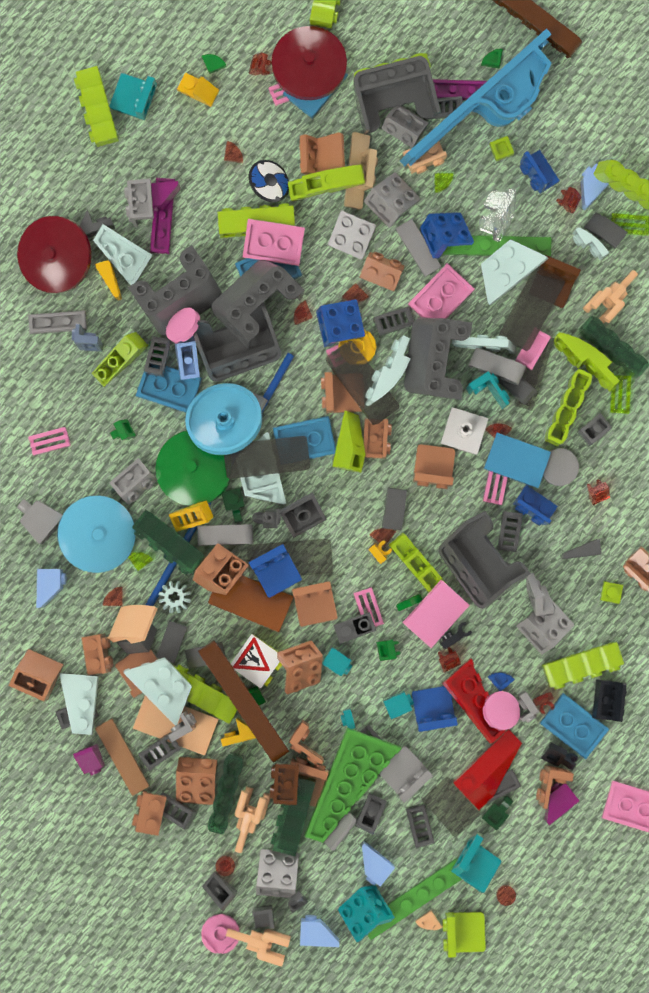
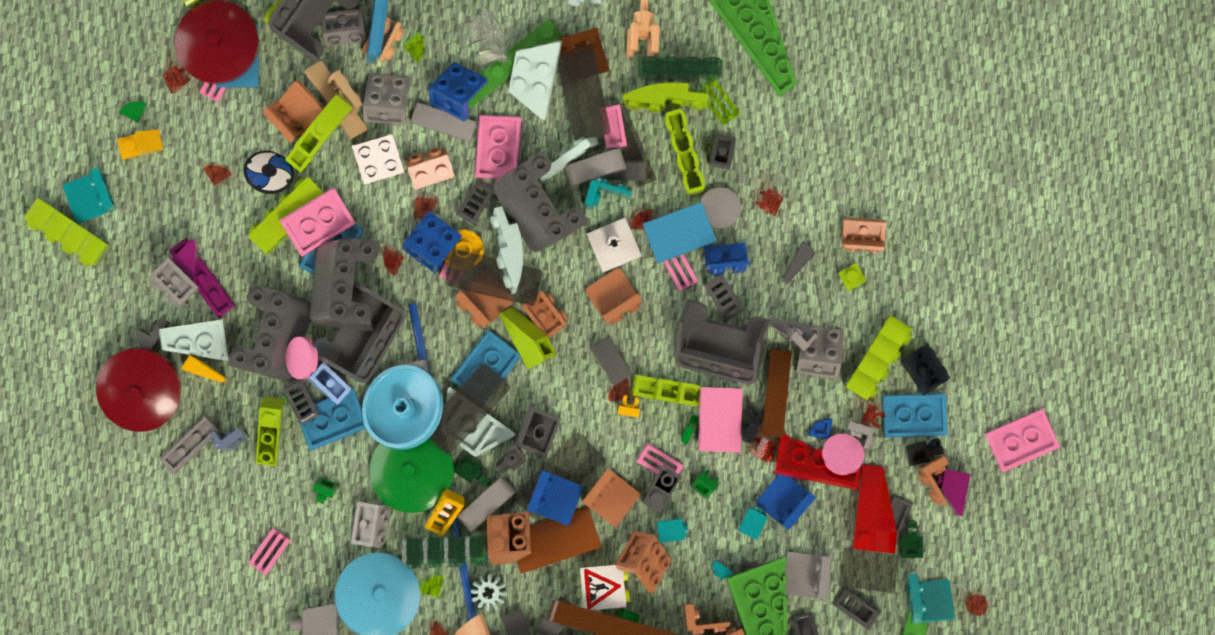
camera: 40 degrees left, 0 degrees up
(491, 628) = (776, 392): none -> reddish brown slope

